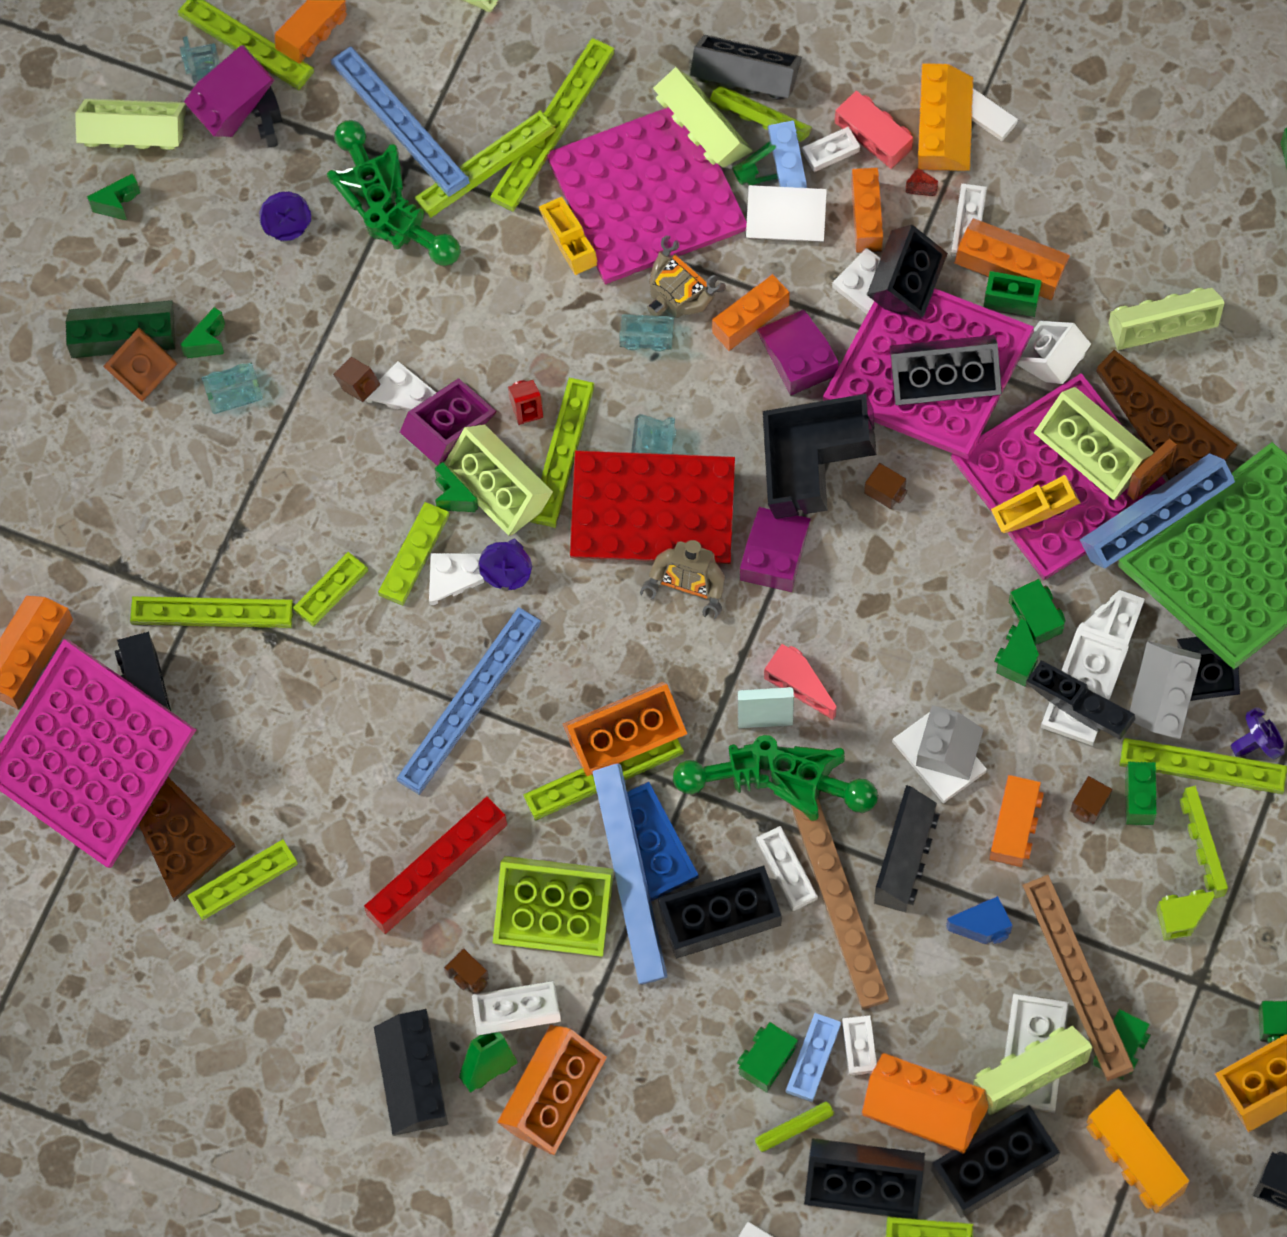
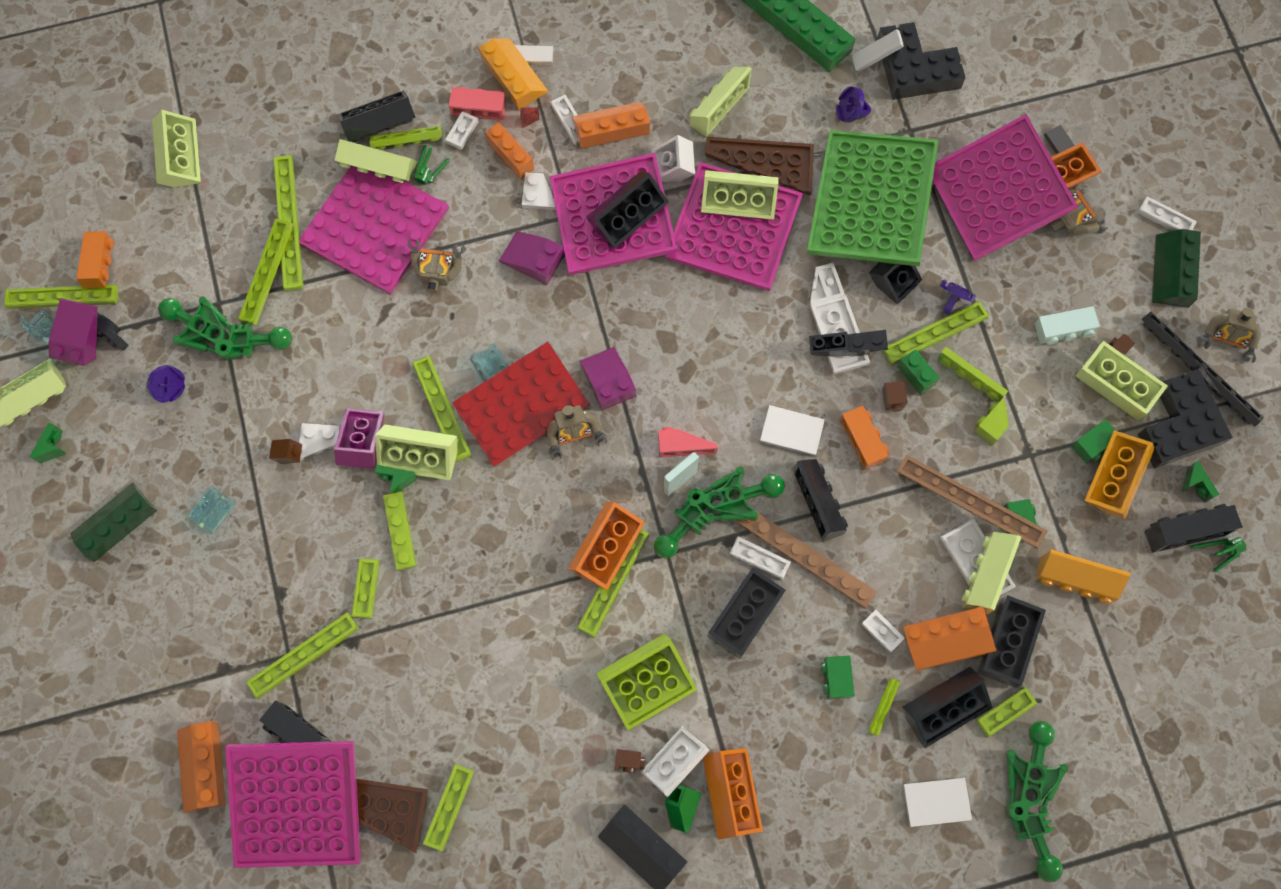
camera: 40 degrees left, 5 degrees up
(140, 364) = (142, 536): dark orange tile -> none
(201, 339) = (170, 494): green slope -> none
(400, 121) = (194, 281): medium blue tile -> none
(435, 865) = (559, 710): red brick -> none
(452, 574) = (433, 526): white wing -> none
(468, 701) = (500, 596): medium blue tile -> none
(505, 565) = (461, 498): dark purple tile -> none
(525, 401) = (397, 393): red slope -> none
(568, 235) = (348, 280): yellow slope -> none
(630, 874) = (677, 629): medium blue tile -> none
(646, 332) = (437, 305): clear light blue bracket -> none
(660, 848) = (671, 601): blue plate -> none
(750, 312) = (489, 252): orange brick -> none
(786, 213) = (465, 183): white tile -> none
(787, 155) = (443, 152): light blue plate -> none
(805, 439) = (579, 305): black piece -> none
(813, 1057) = (863, 657): light blue plate -> none
(886, 486) = (643, 299): reddish brown brick -> none
(907, 272) = (561, 169): black slope -> none
(949, 743) = (794, 420): light grey slope -> none
(982, 922) = (893, 508): blue slope -> none
(1012, 294) = (628, 143): green brick -> none
(1019, 656) = (792, 342): green slope -> none
(1035, 605) = (781, 311): green brick -> none
(1036, 505) = (735, 251): yellow slope -> none
(1152, 469) = (785, 186): dark orange tile -> none
(1157, 510) = (804, 208): medium blue brick -> none
(1164, 688) = (888, 303): light grey slope -> none

